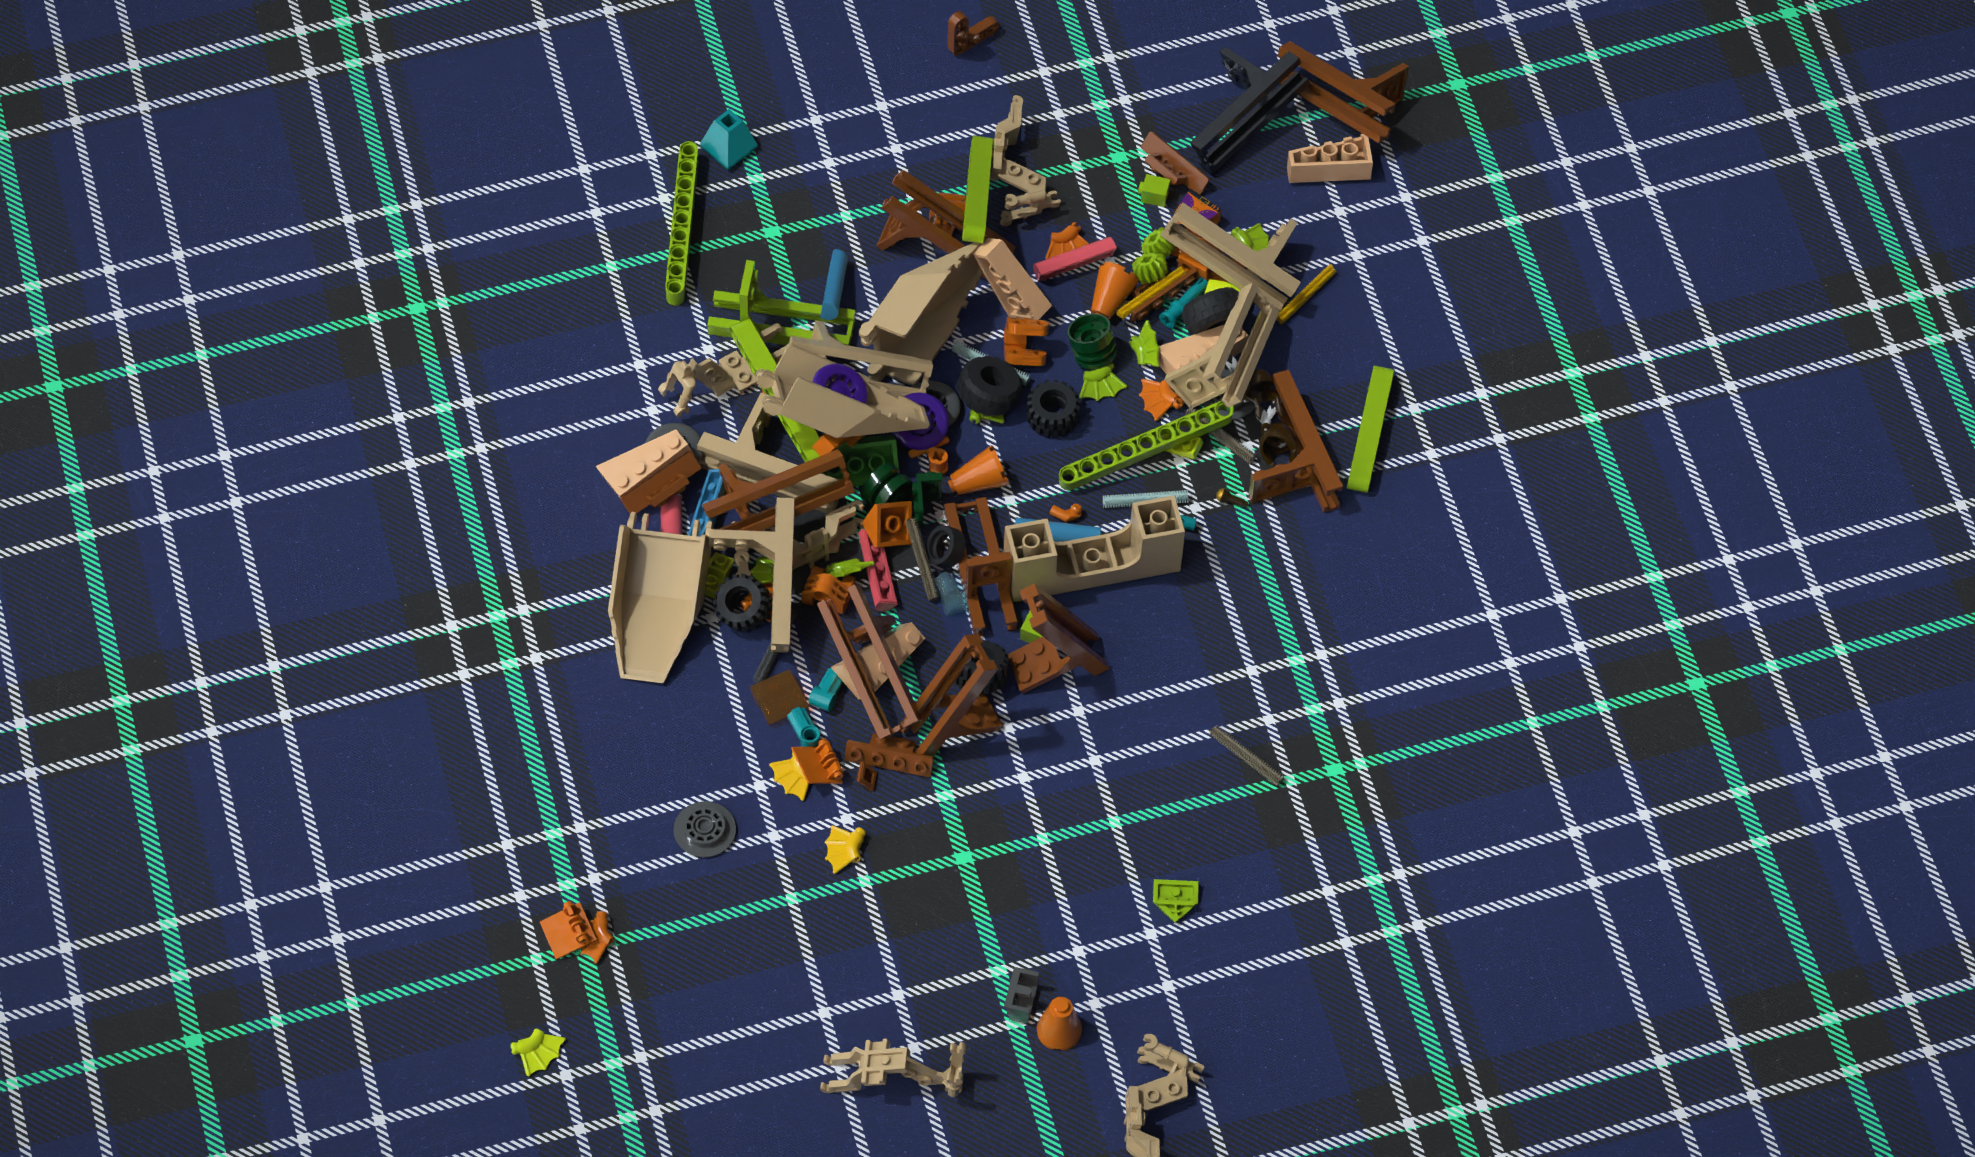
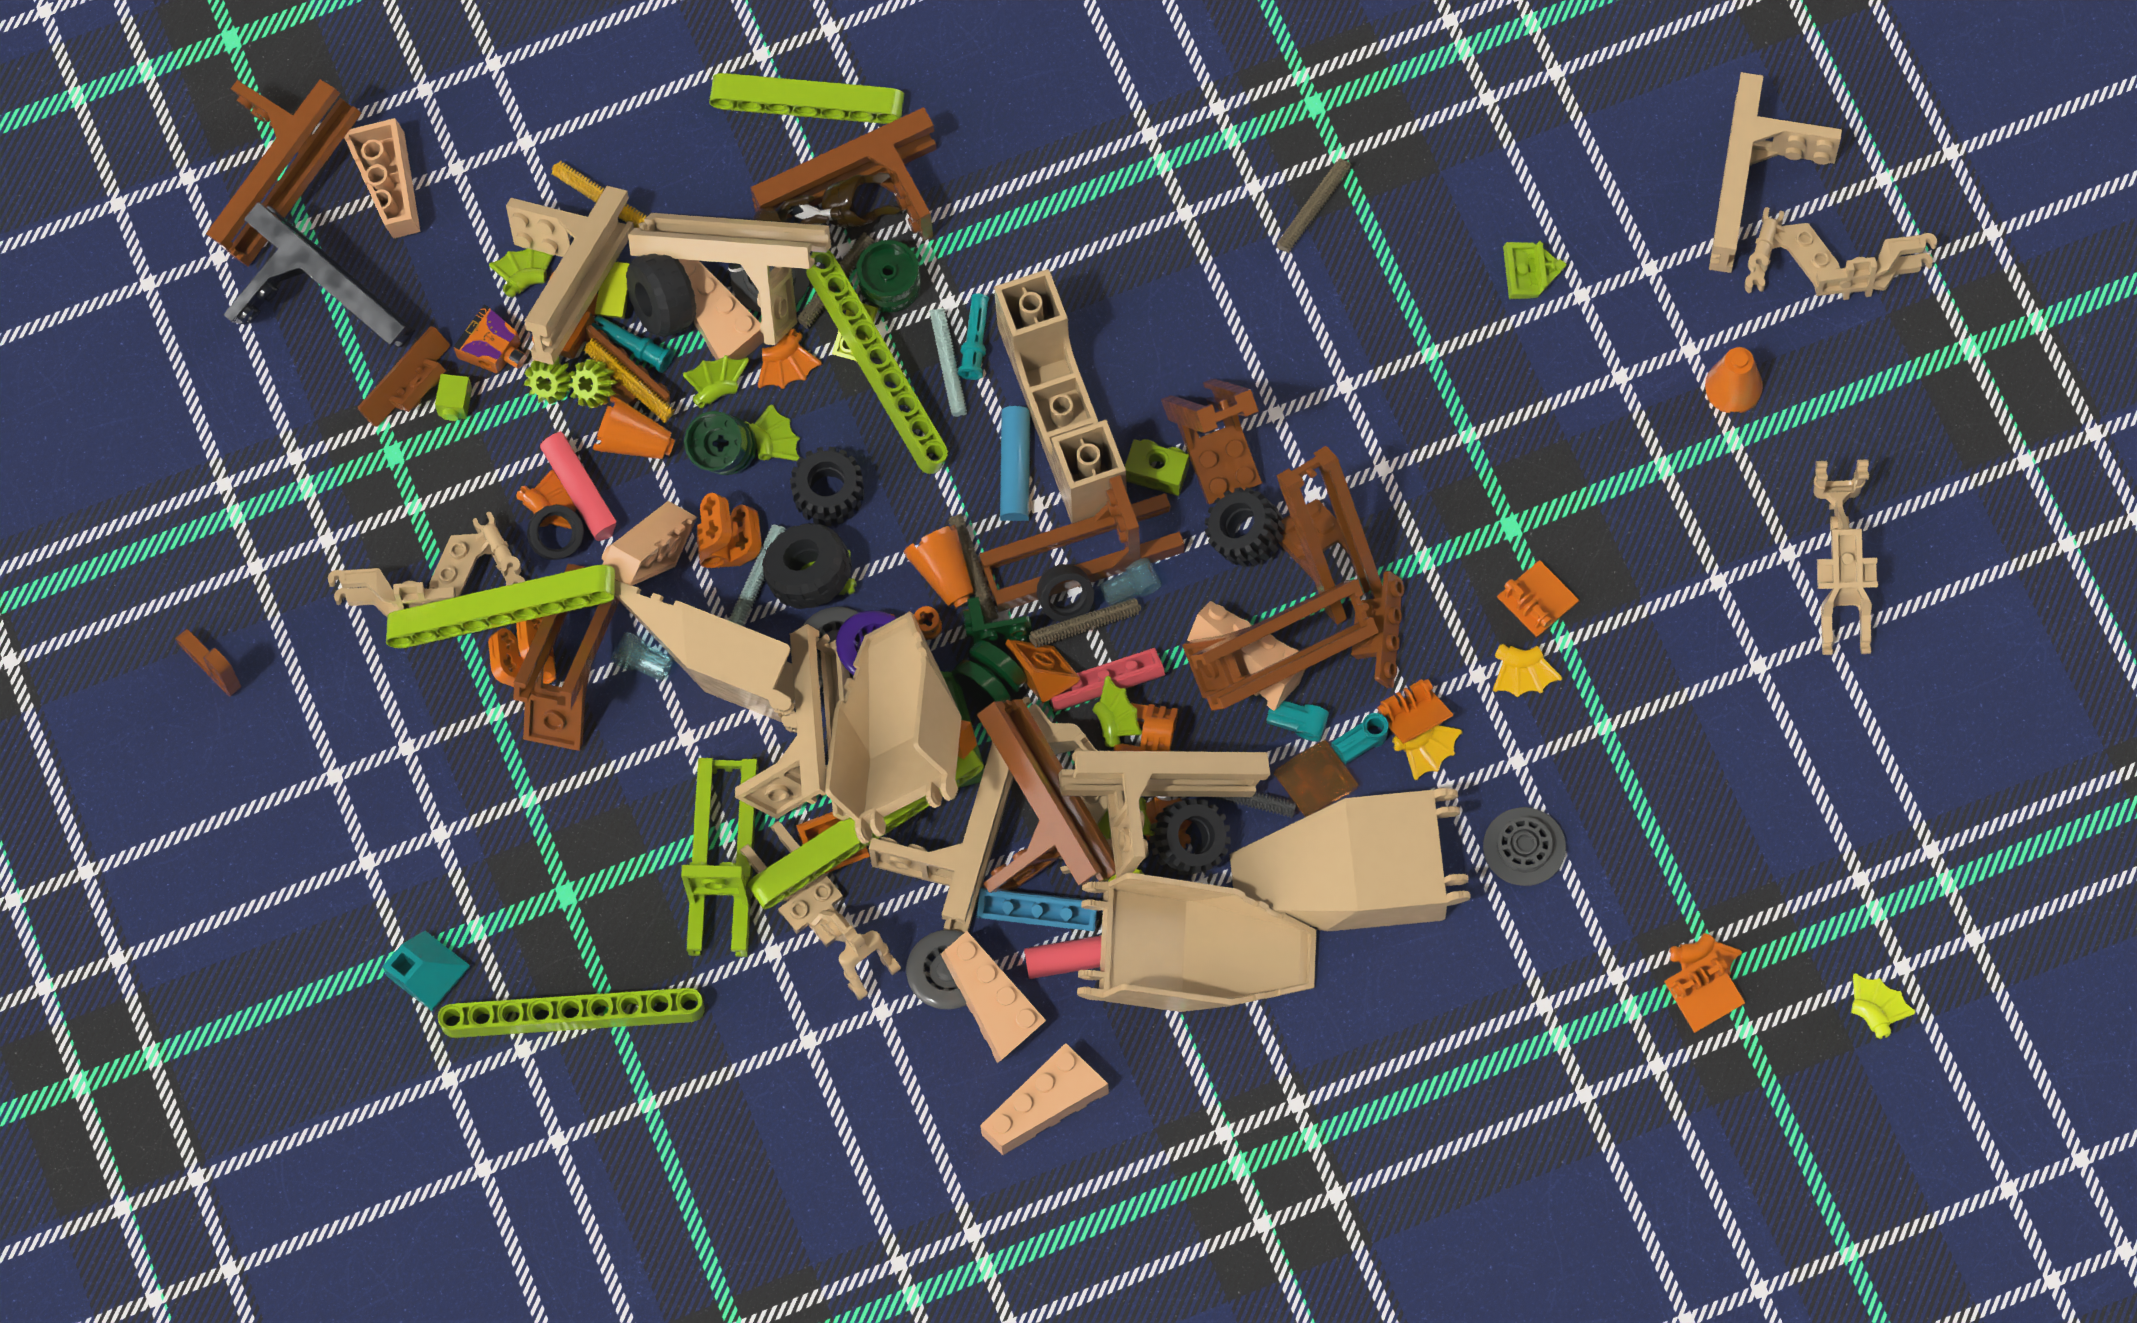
camera: 90 degrees left, 10 degrees up
(567, 497) = (1049, 1095): none -> light nougat wedge
(662, 484) = (1023, 964): dark orange bracket -> none
(705, 704) = (1356, 863): none -> tan windscreen
(834, 285) = (663, 789): dark azure brick -> none
(849, 377) = (874, 738): dark purple wheel -> none
(866, 776) = (1418, 656): dark orange slope -> none
(900, 864) = (1537, 598): none -> orange hinge
(990, 495) = (975, 572): none -> dark tan axle
(1021, 994) = (1705, 428): dark grey window -> none
(1032, 228) = (570, 516): none -> black tyre
(1066, 515) = (984, 455): orange arm -> none
(1215, 462) = (888, 276): none -> dark green wheel
(1225, 496) = (930, 267): dark brown piece -> none
(1242, 1049) = (1749, 146): none -> tan piece

